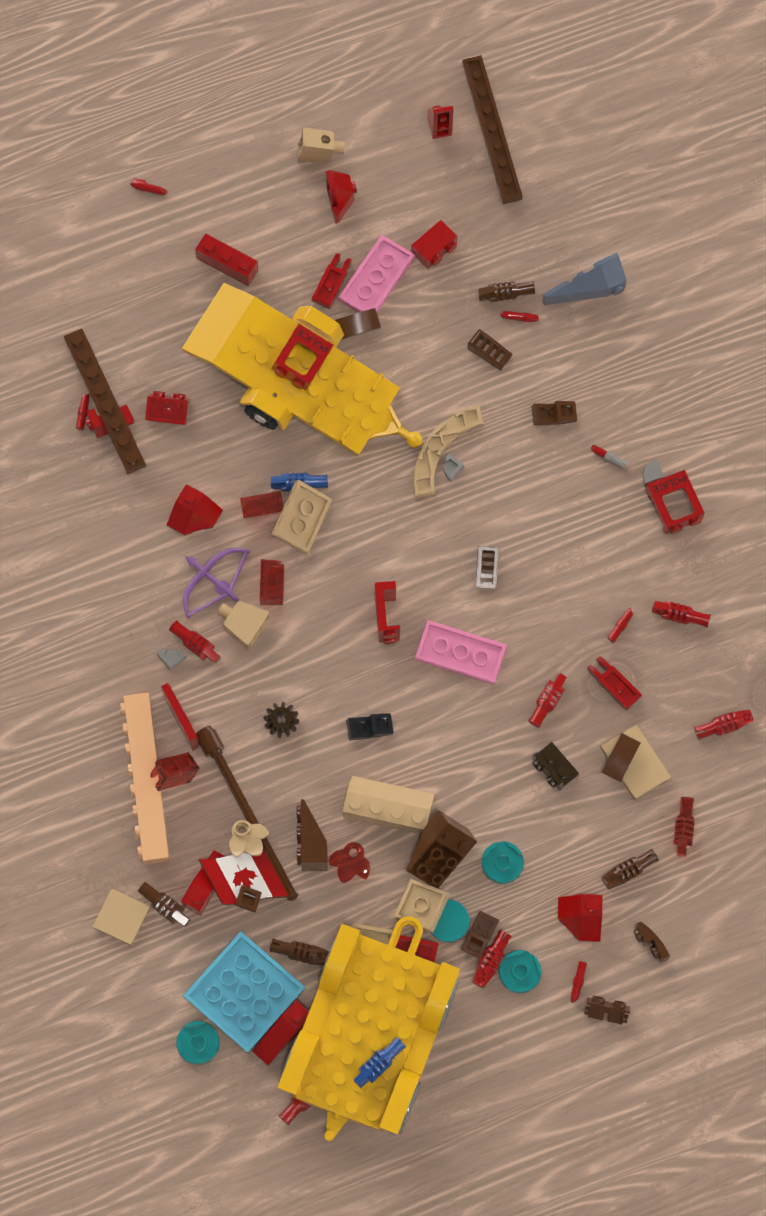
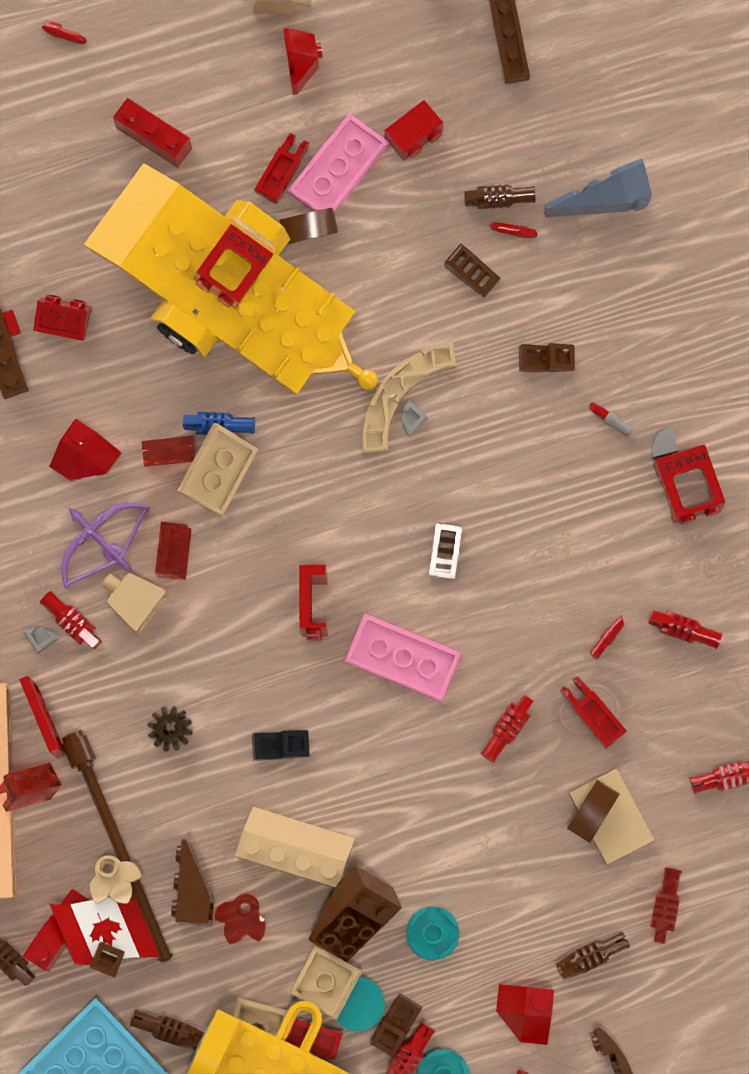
camera: 10 degrees right, 5 degrees up
(554, 766) = (509, 814): dark brown bracket -> none

